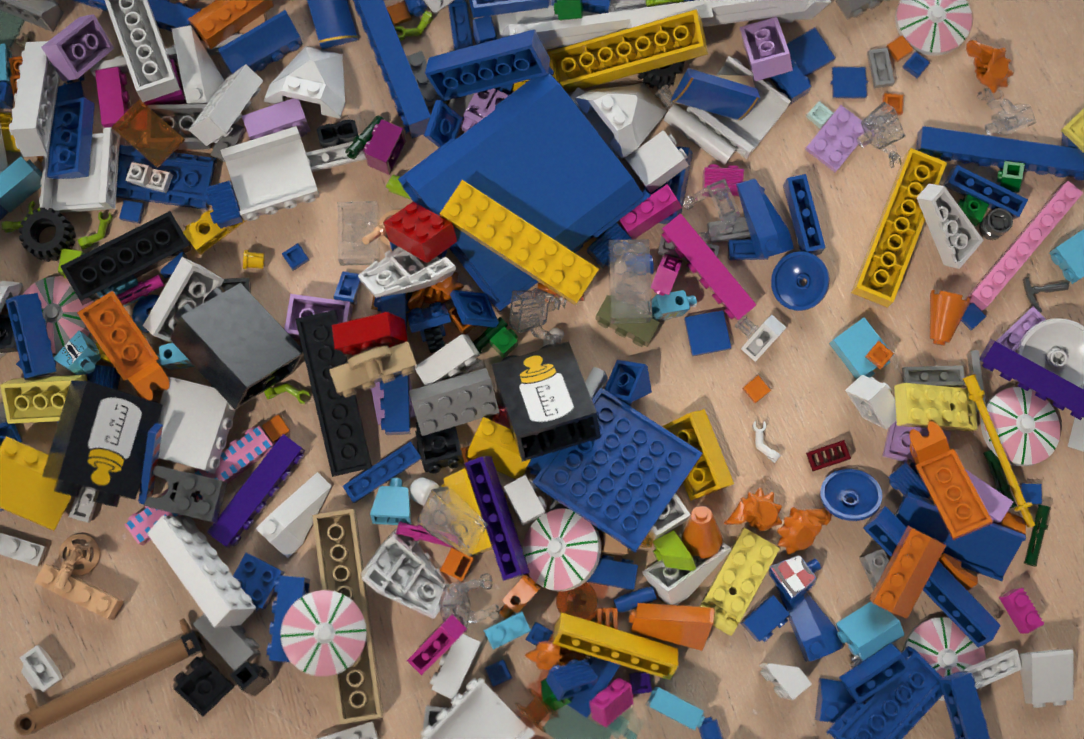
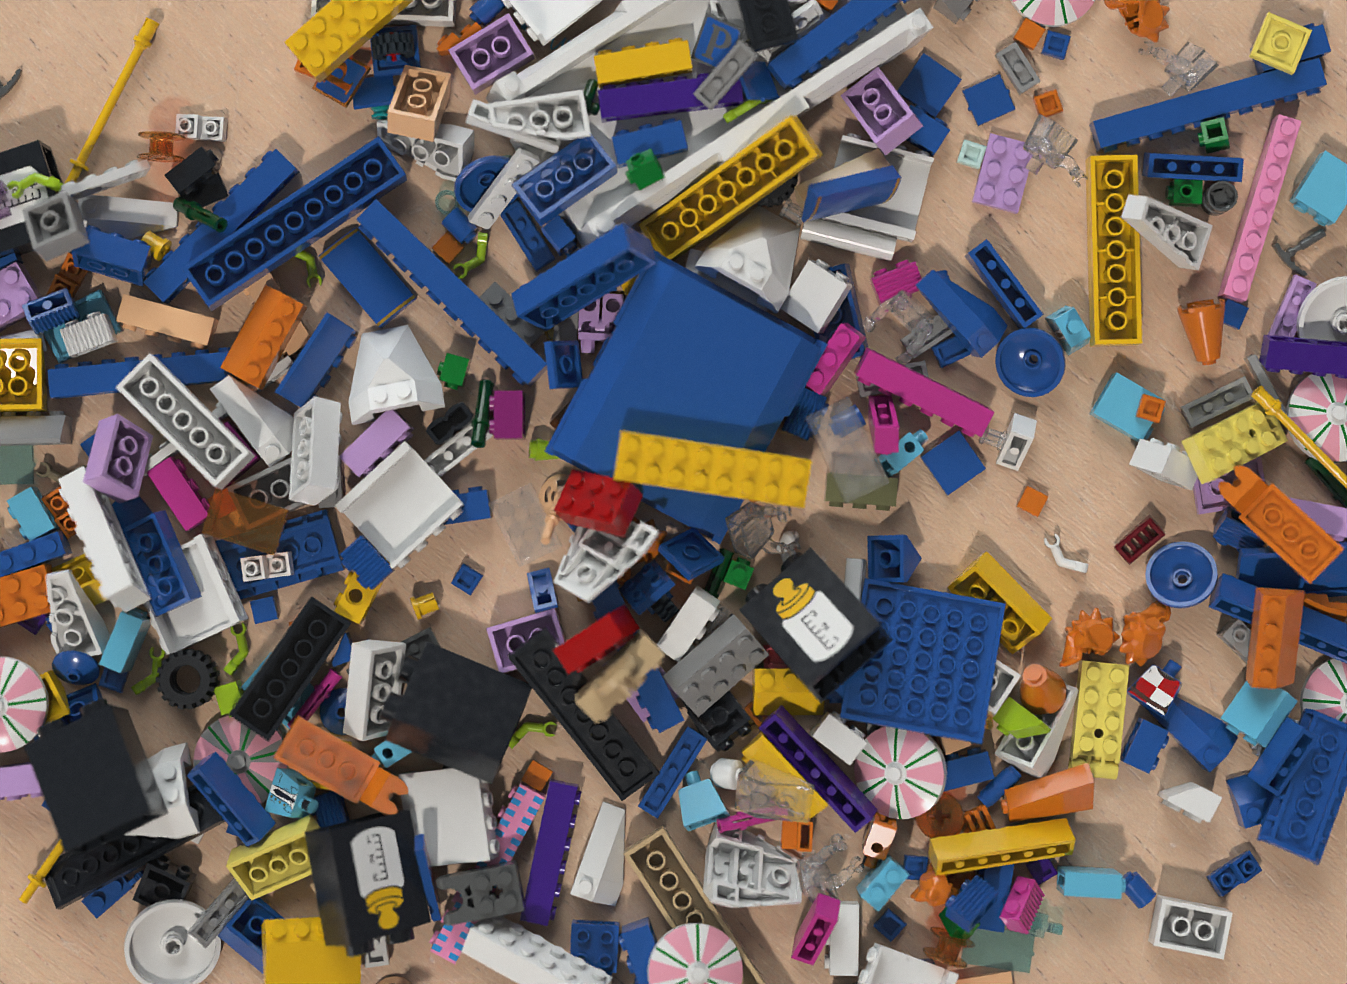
camera: 25 degrees left, 10 degrees up
(325, 204) = (475, 506): none -> blue brick
(360, 100) = (454, 371): none -> green brick
(841, 270) = (1069, 329): none -> medium azure torso

